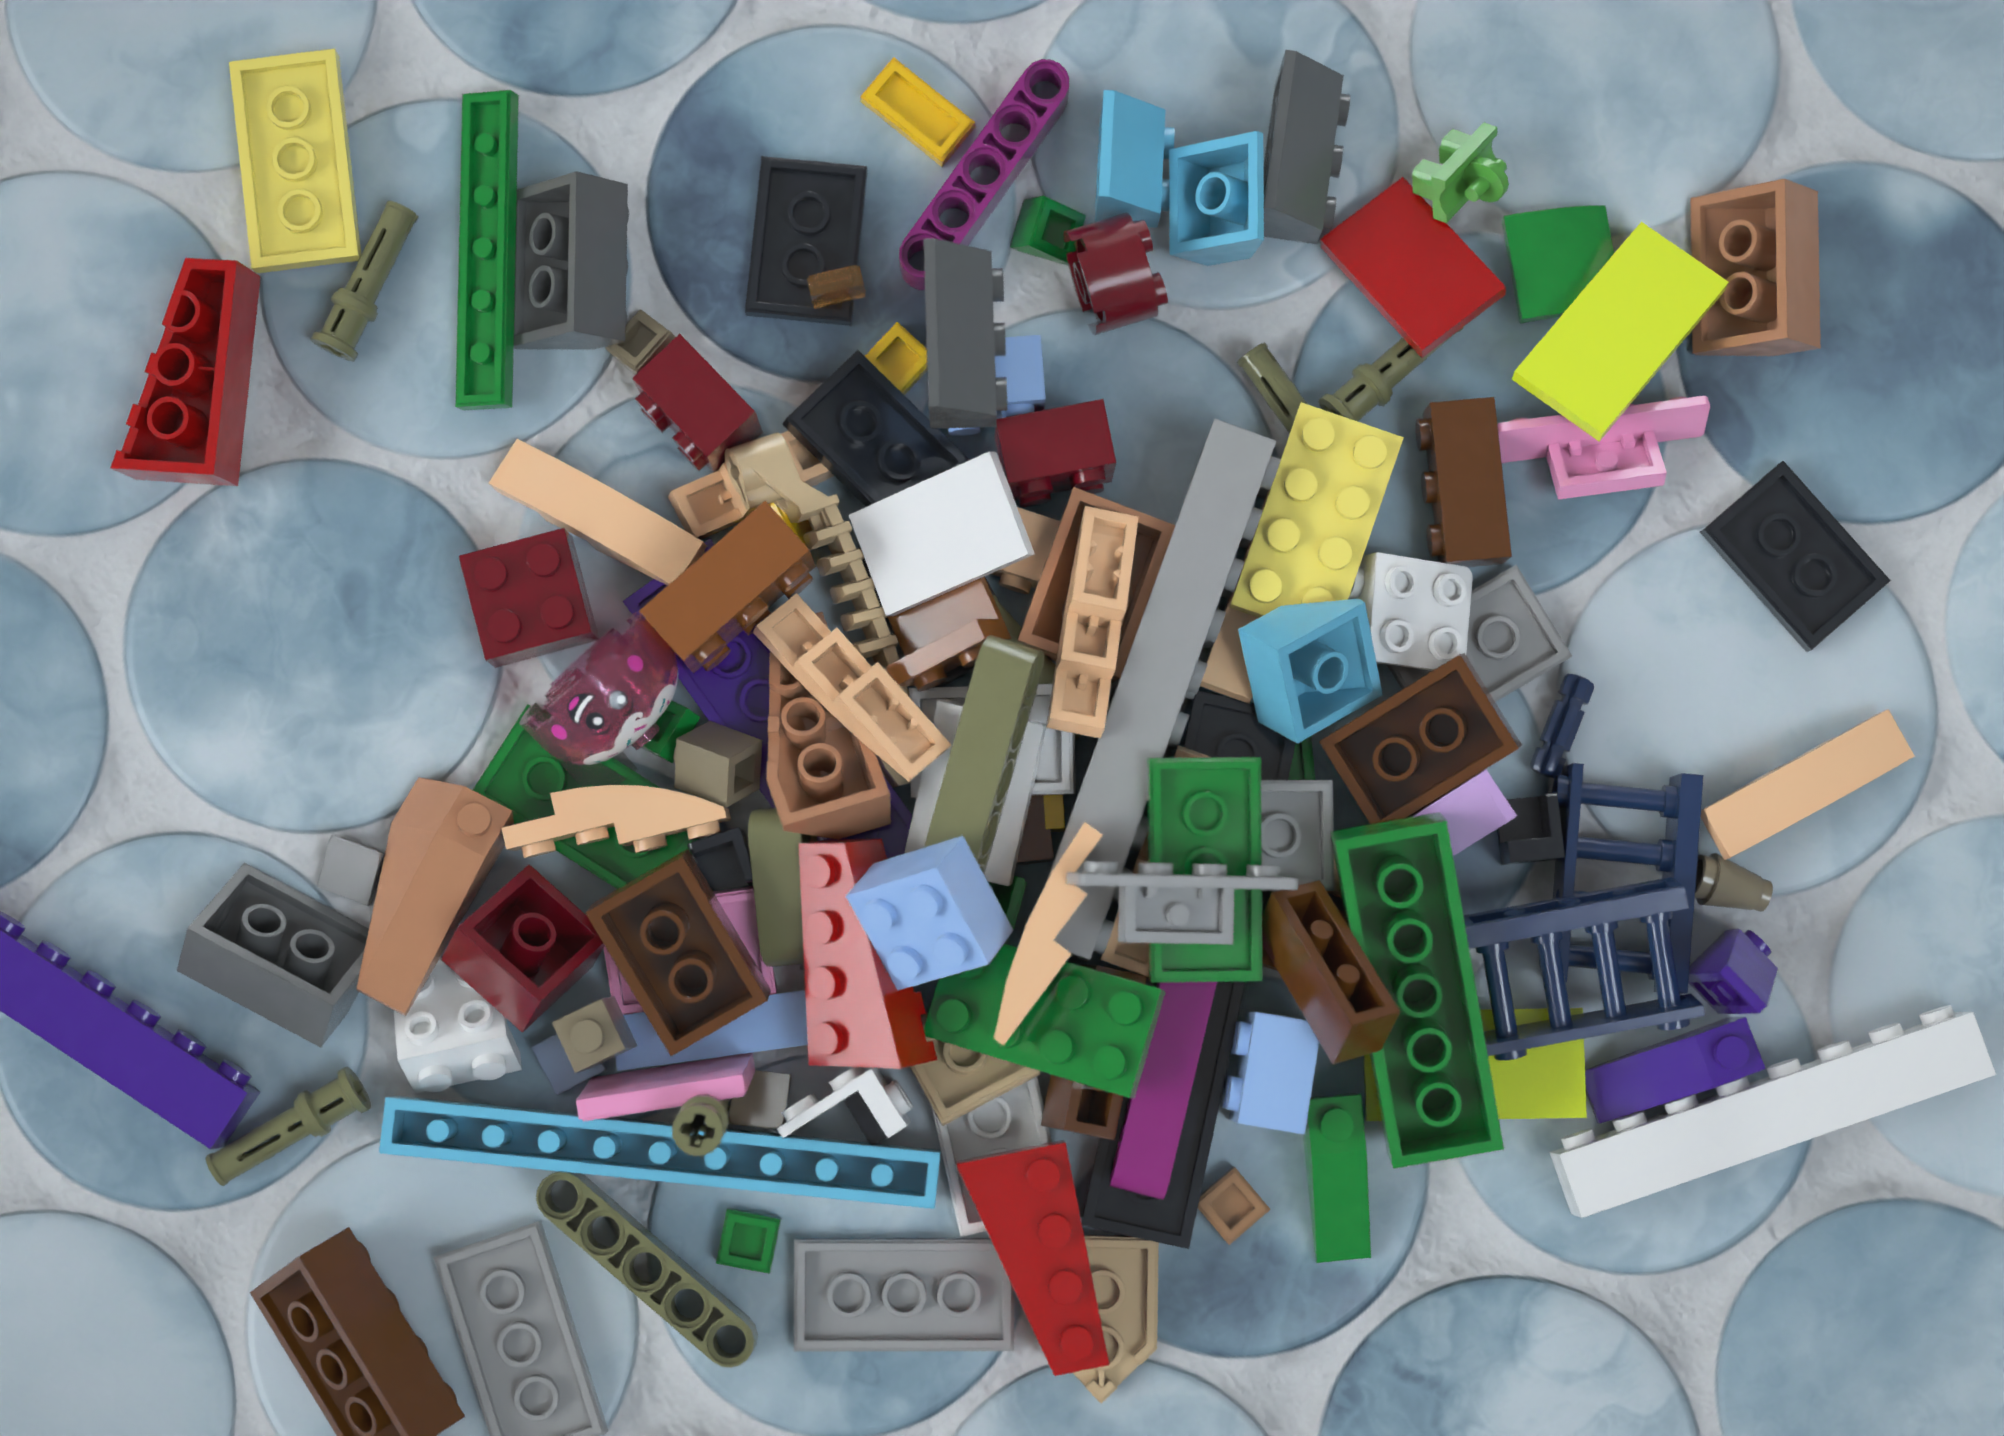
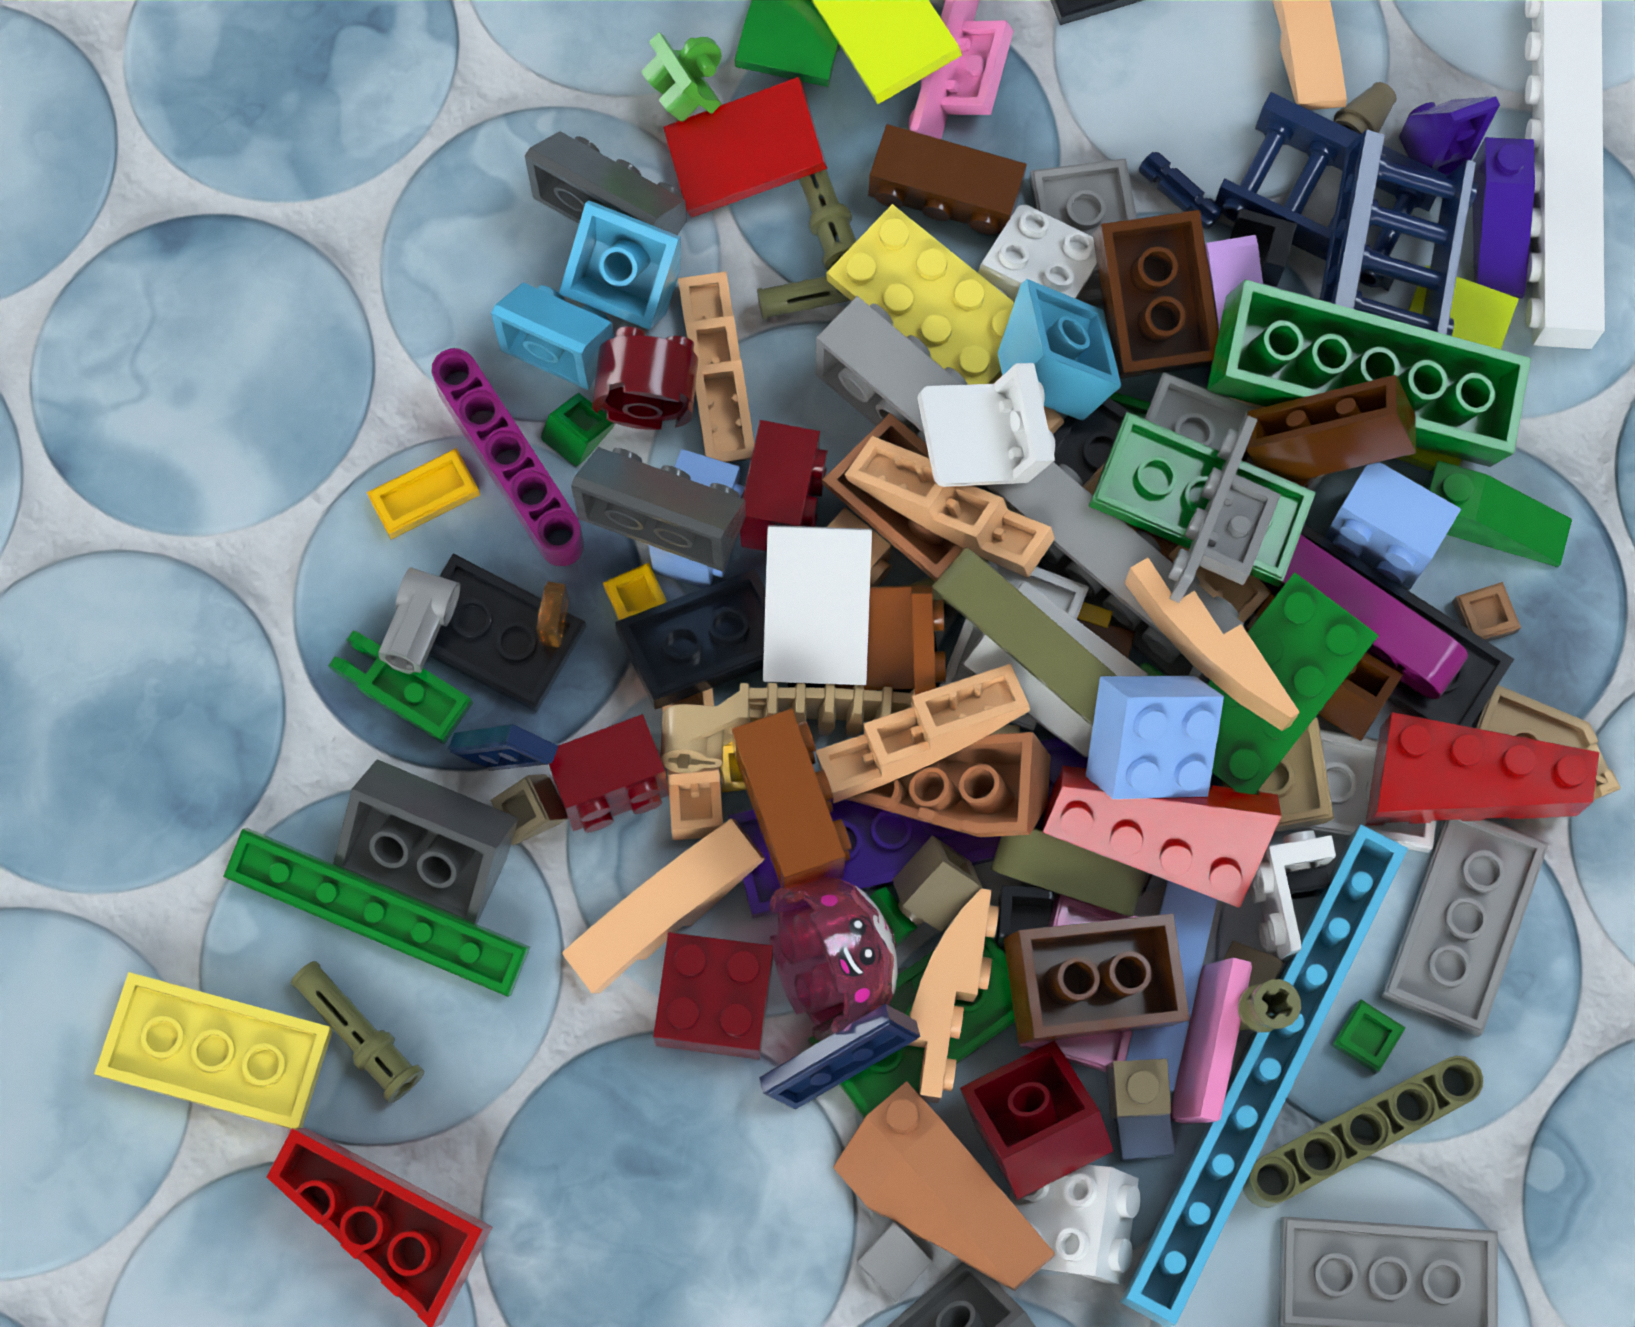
camera: 65 degrees left, 10 degrees down
(509, 739) = (840, 1056): none -> dark blue tile
(672, 295) = (503, 748): none -> dark blue tile
(712, 180) = (415, 697): none -> green hinge
(792, 160) = (422, 607): none -> light grey piece
(1163, 342) = (720, 373): none -> light nougat slope
(1174, 622) = (987, 430): none -> white bracket

